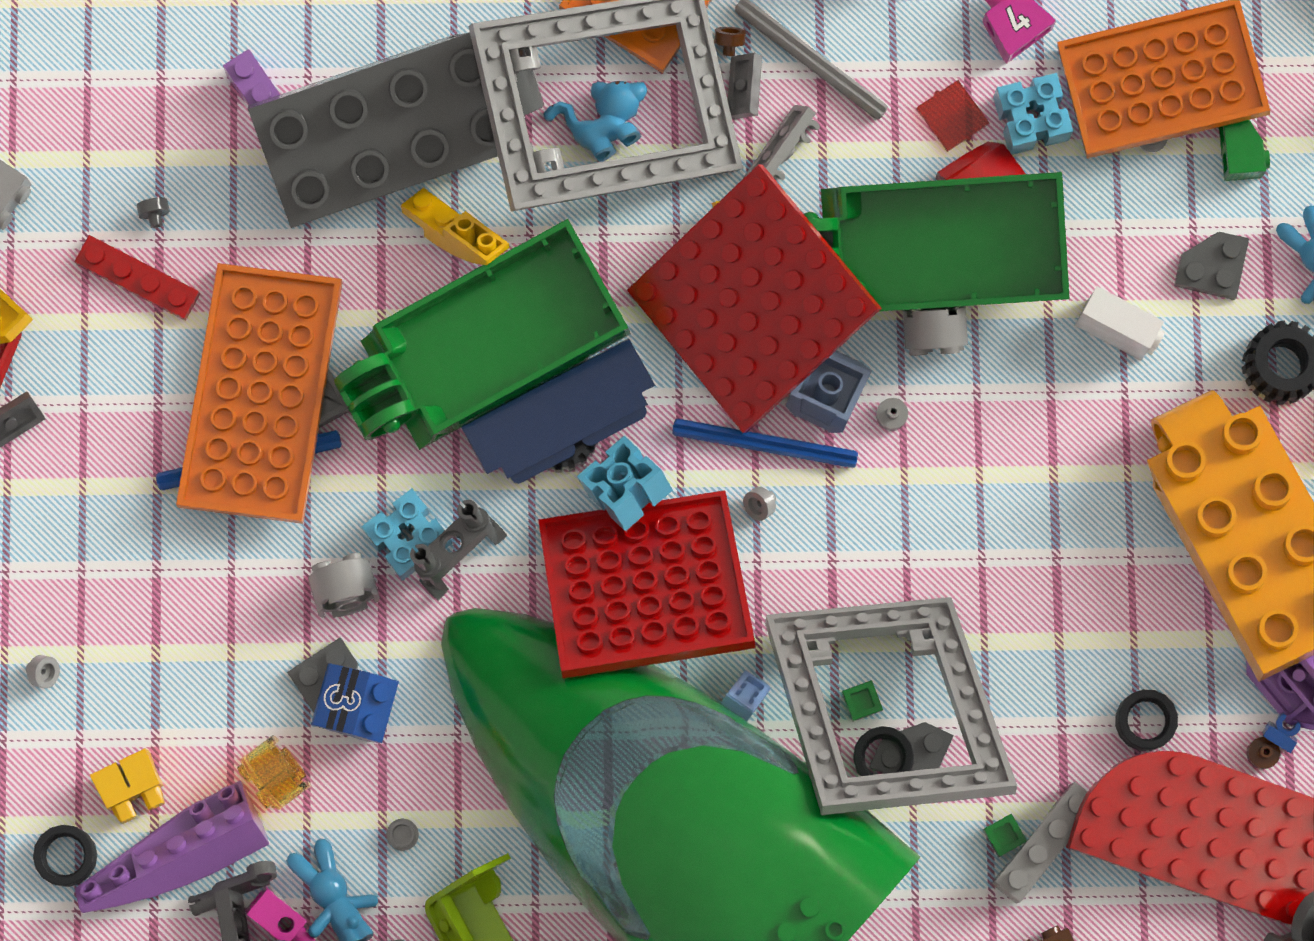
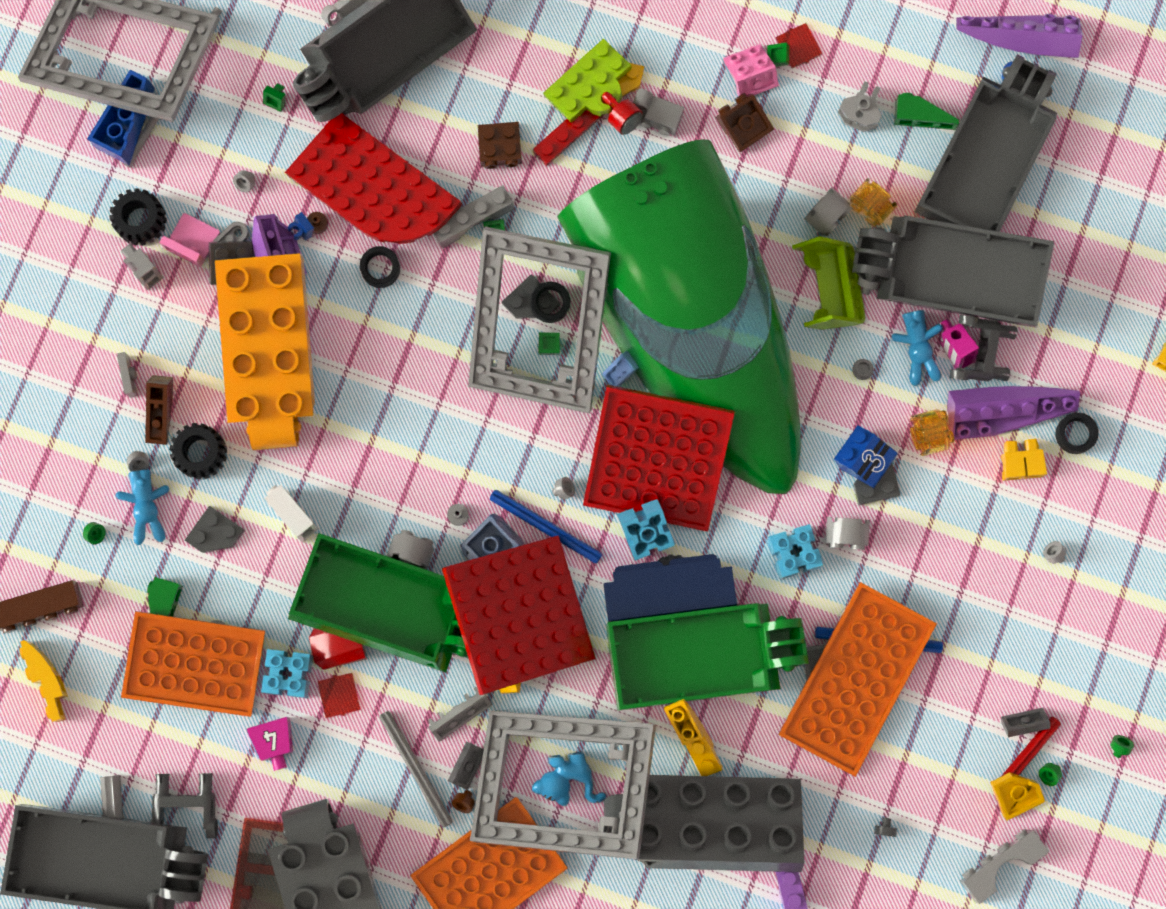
camera: 155 degrees left, 0 degrees up
(137, 277) = (910, 789): red plate -> none
(435, 562) = (755, 534): dark grey connector -> none

